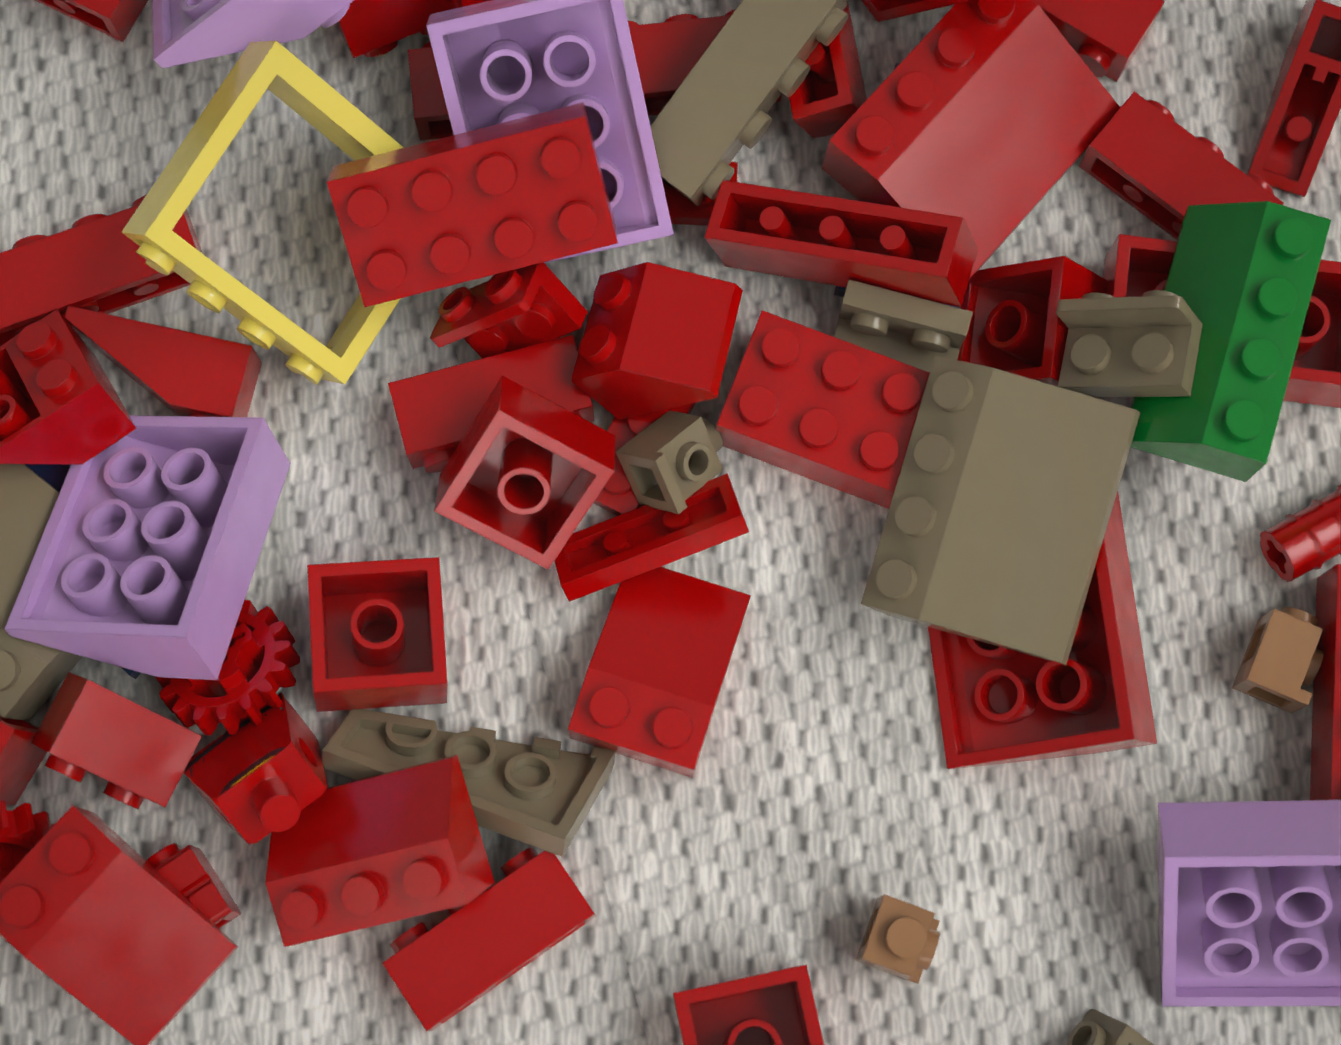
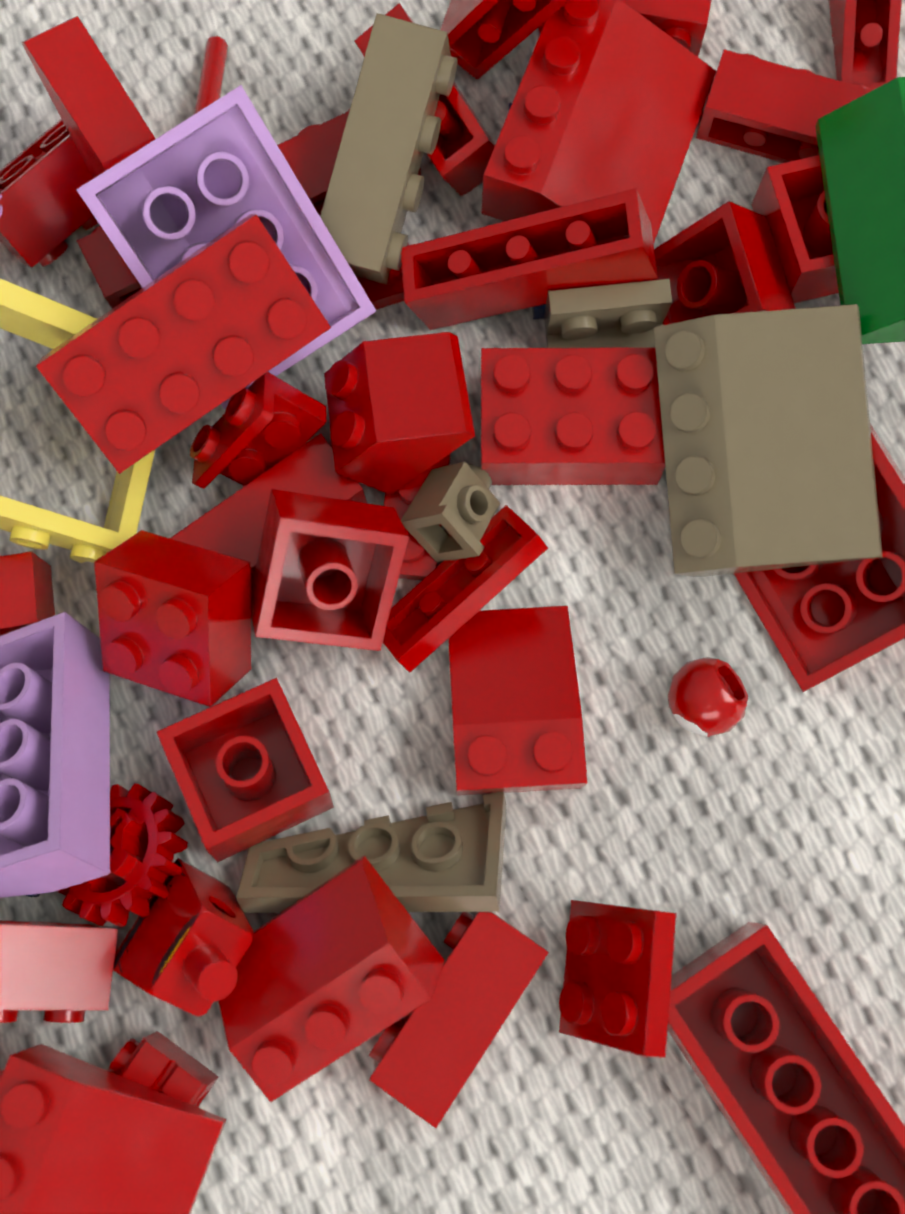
camera: 15 degrees left, 0 degrees up
(365, 462) = (174, 616): none -> red brick
(650, 959) = (618, 977): none -> red plate
(847, 735) = (707, 697): none -> red piece
(899, 938) = (829, 863): medium nougat brick -> none
(1129, 345) = (825, 250): dark tan bracket -> none

